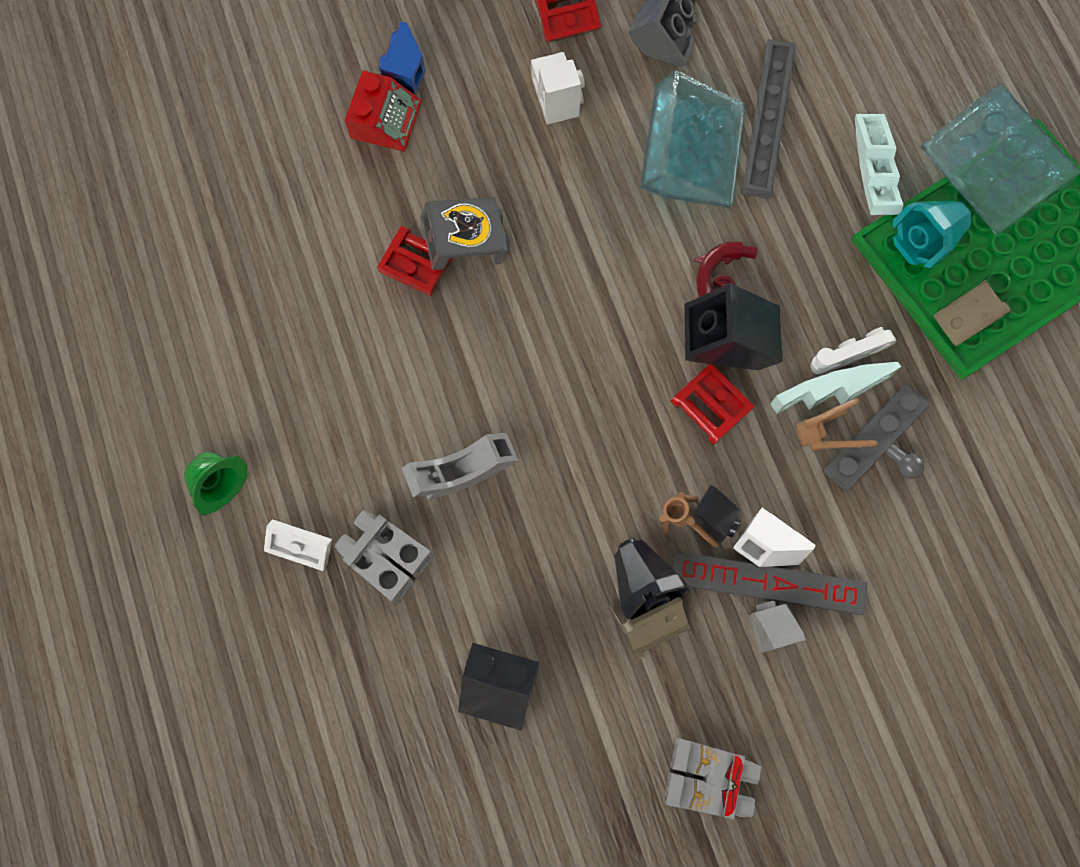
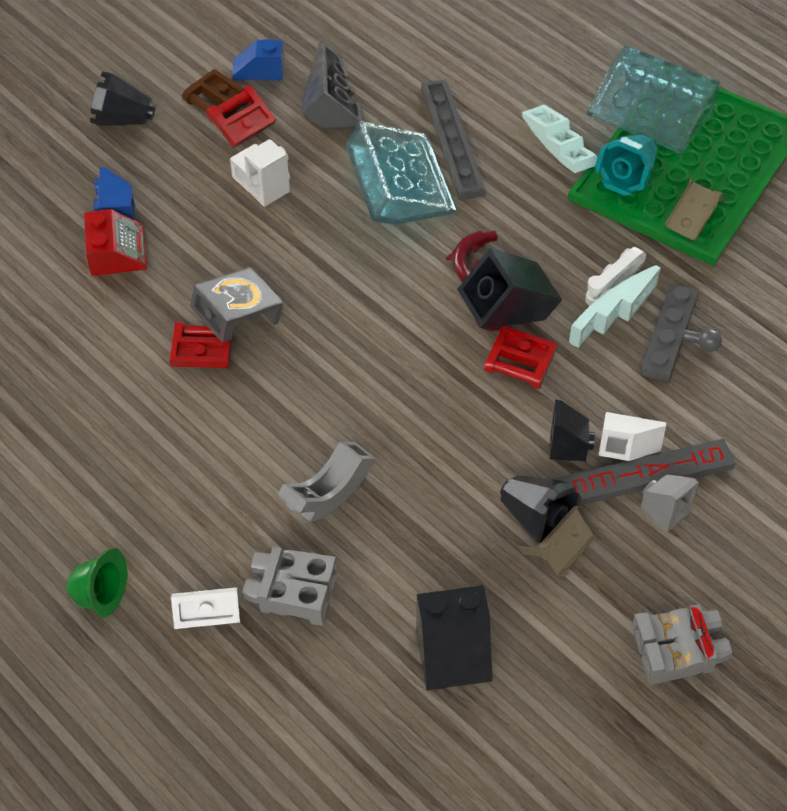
camera: 25 degrees left, 20 degrees down
(680, 514) = (541, 438): medium nougat plant -> none
(812, 430) = (615, 341): medium nougat plant -> none

